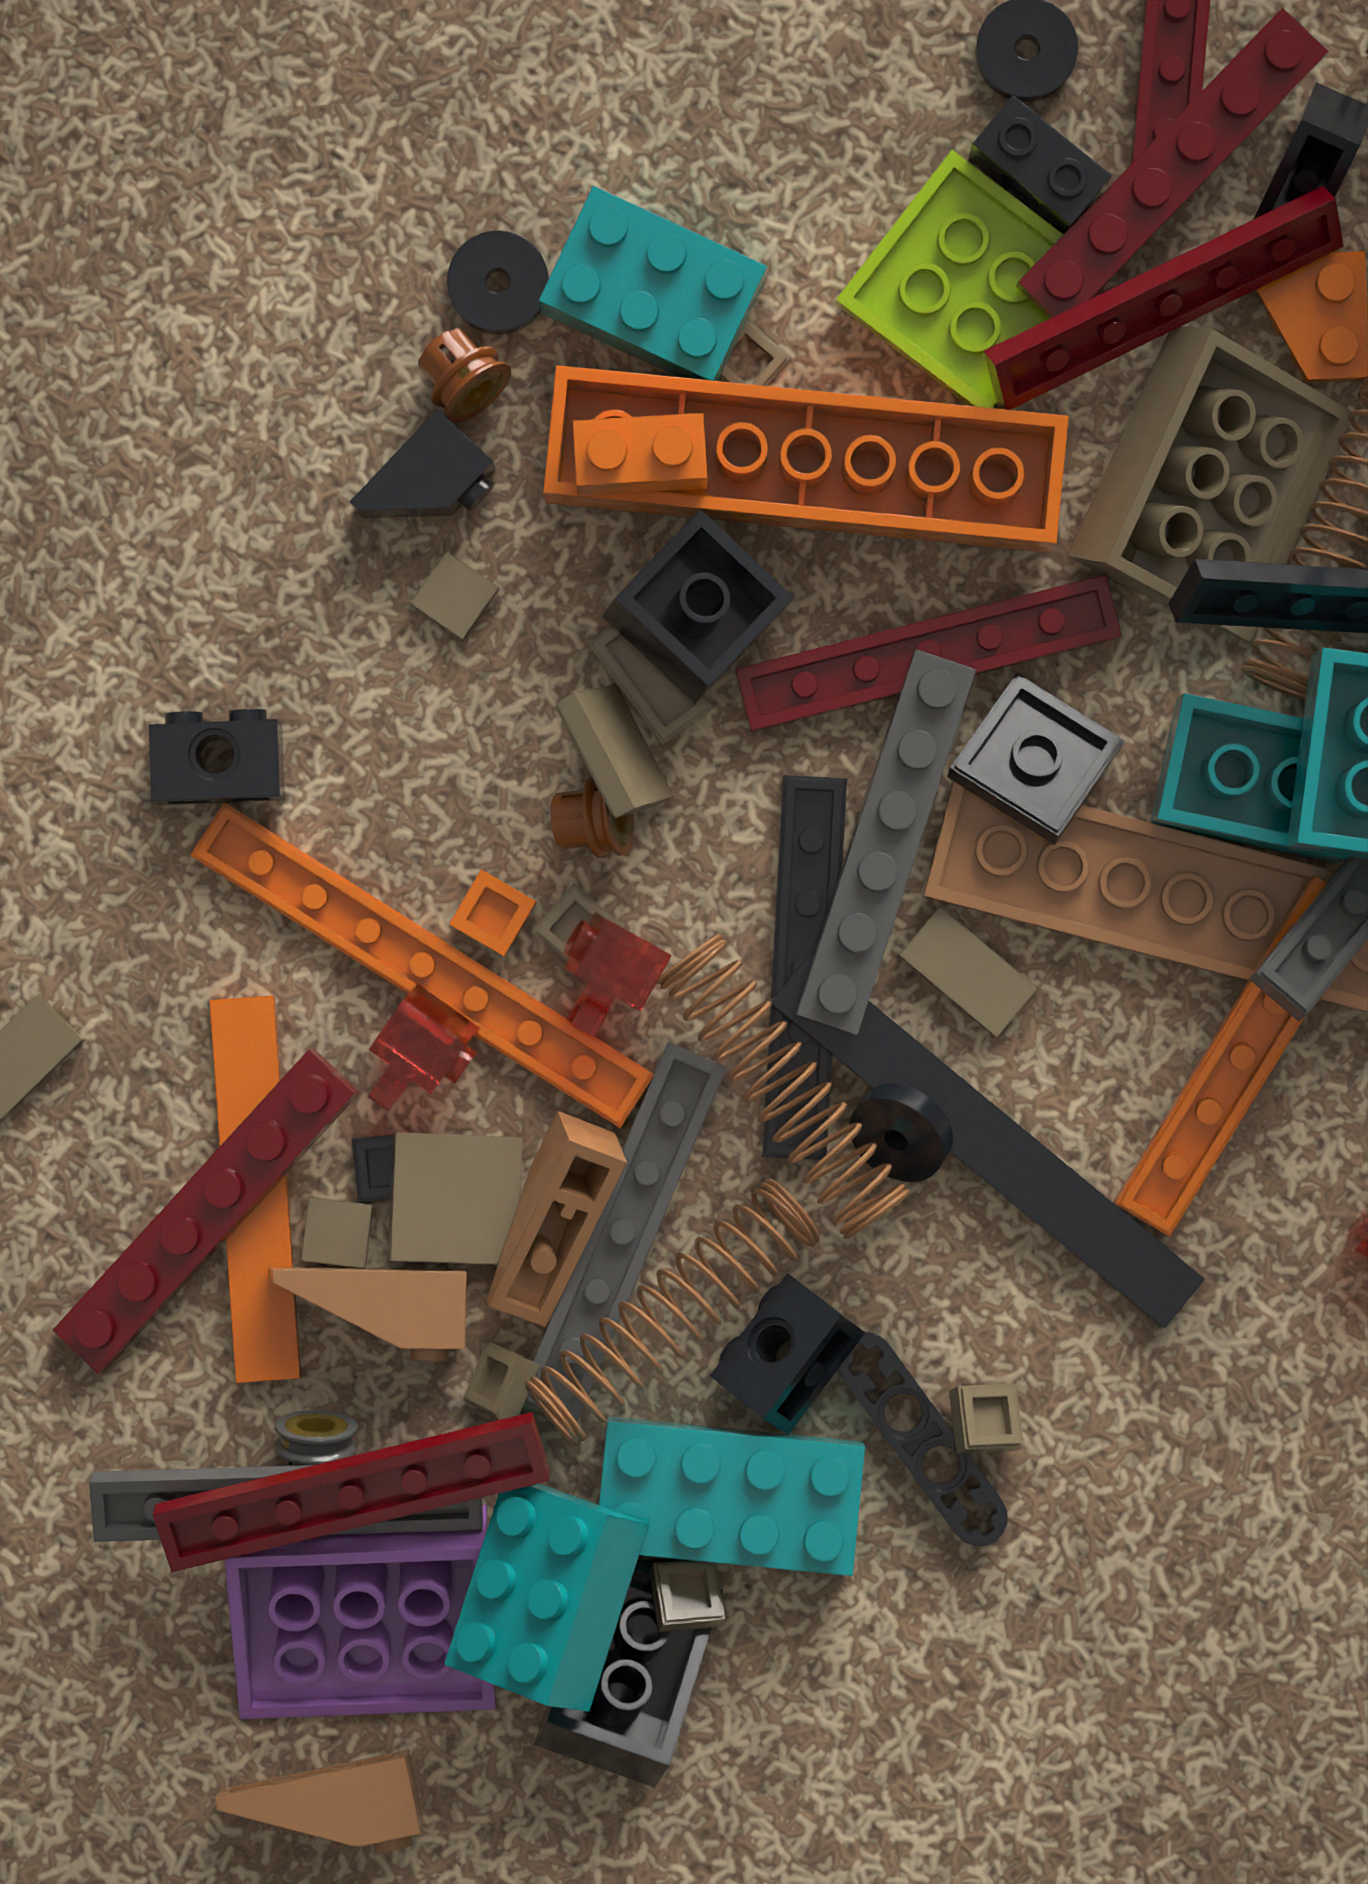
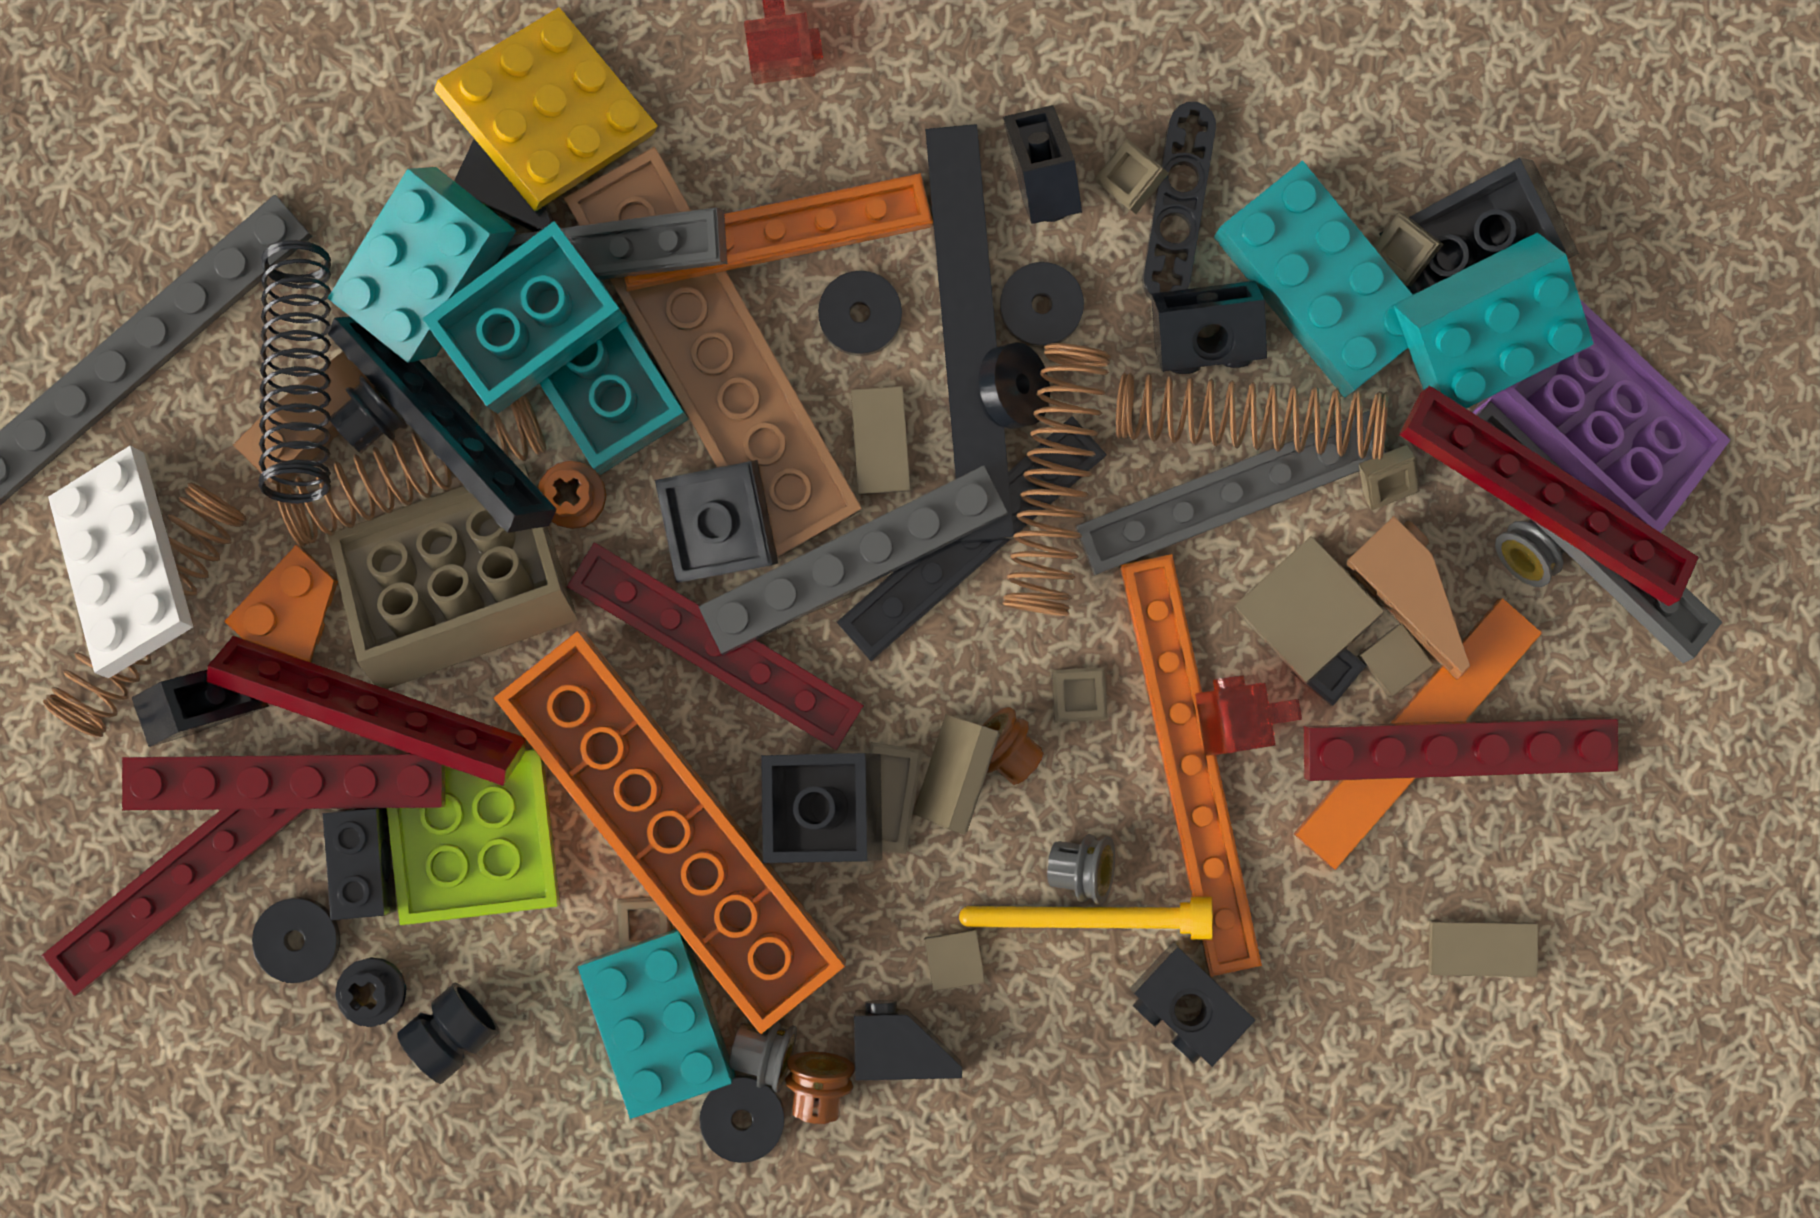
camera: 135 degrees left, 0 degrees up
(291, 832) = (1191, 917): none -> yellow piece
(343, 1802) = (1724, 333): medium nougat slope -> none
(424, 783) = (1083, 867): none -> dark grey piece
(492, 913) = (1120, 752): orange plate -> none
(535, 353) = (763, 1053): none -> dark grey piece
(555, 1217) = (1261, 539): medium nougat slope -> none
(614, 966) = (1083, 650): clear red brick -> none
(640, 454) = (766, 930): orange brick -> none
(818, 96) = (440, 1039): none -> black wheel
(901, 83) = (389, 991): none -> black piece
(979, 1233) = (1047, 281): none -> black piece
(1072, 1350) = (1043, 164): none -> black slope
(1127, 1063) = (860, 289): none -> black piece
(1167, 673) = (590, 491): none -> dark orange piece

